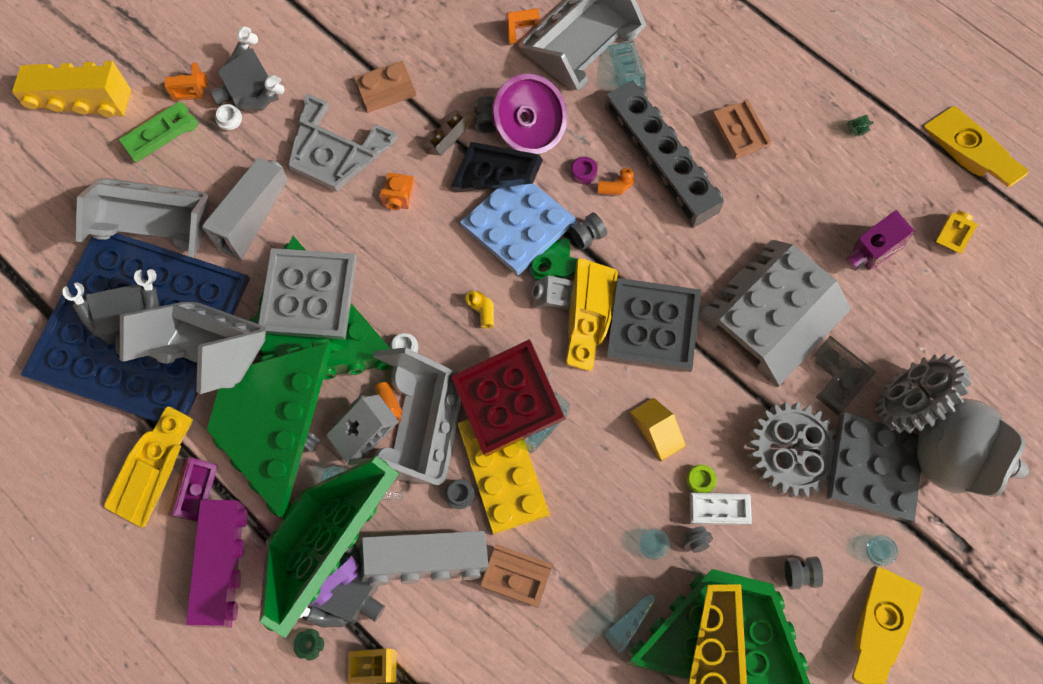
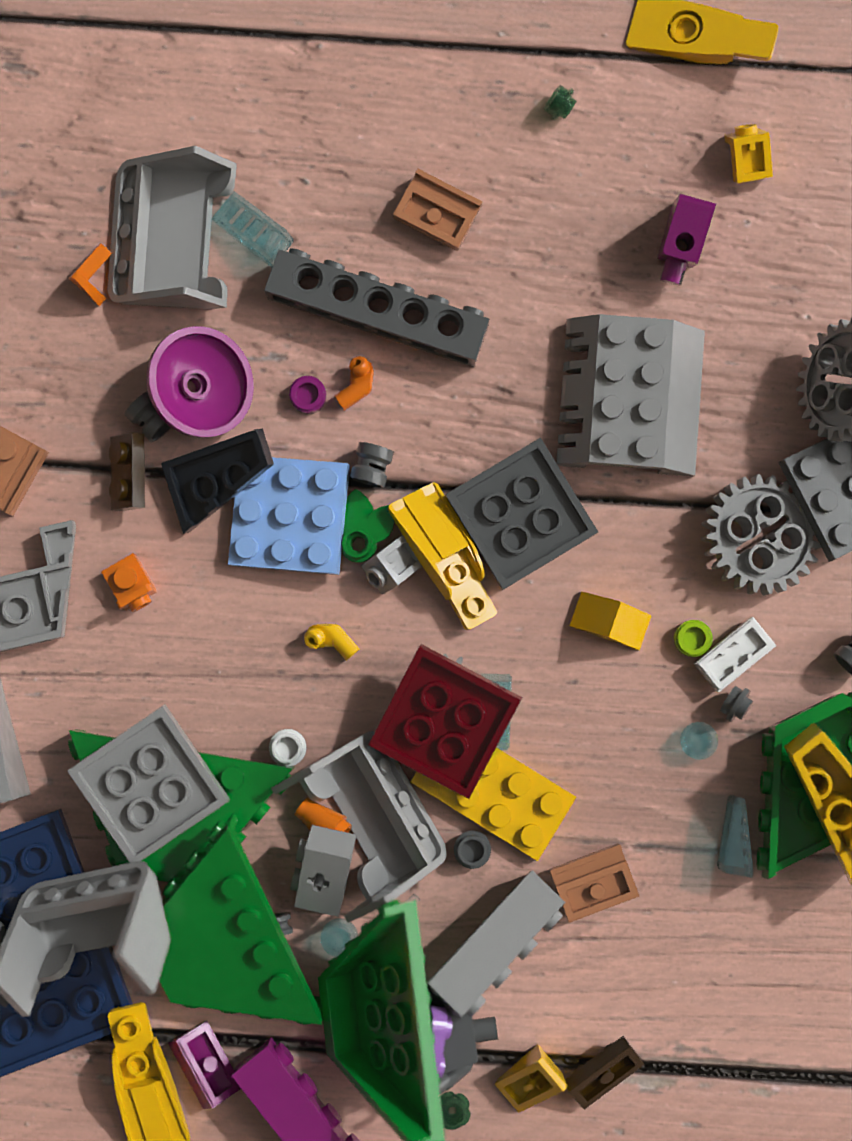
camera: 40 degrees left, 15 degrees up
(847, 373) = (757, 410): clear smoke plate -> none

